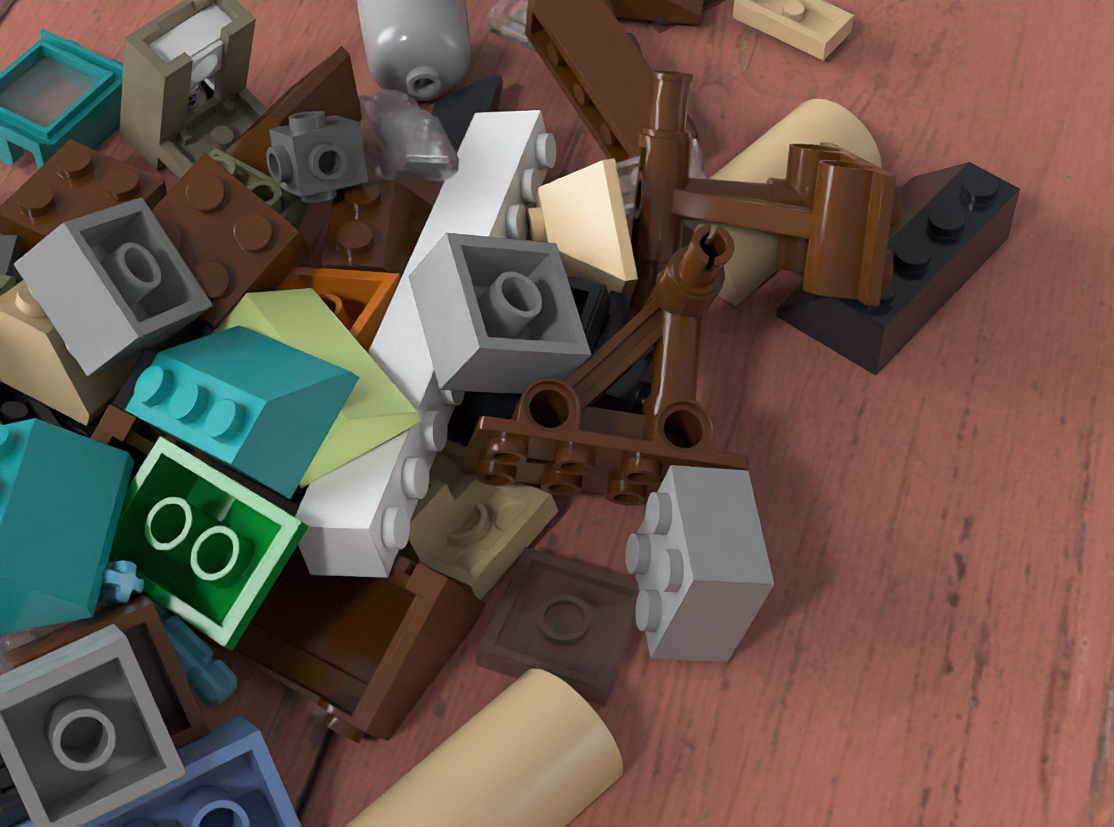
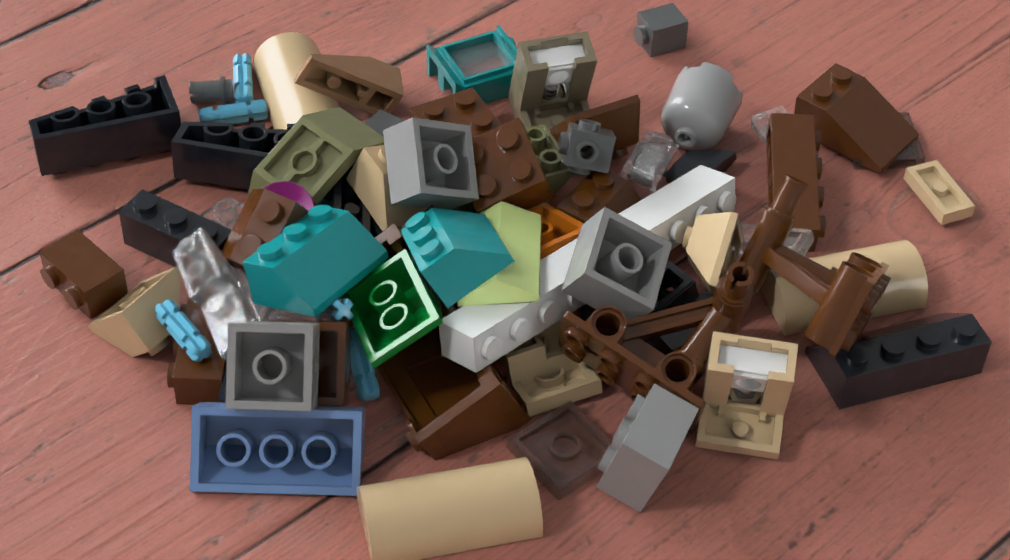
camera: 30 degrees right, 5 degrees down
(778, 406) = (746, 394): none -> tan brick

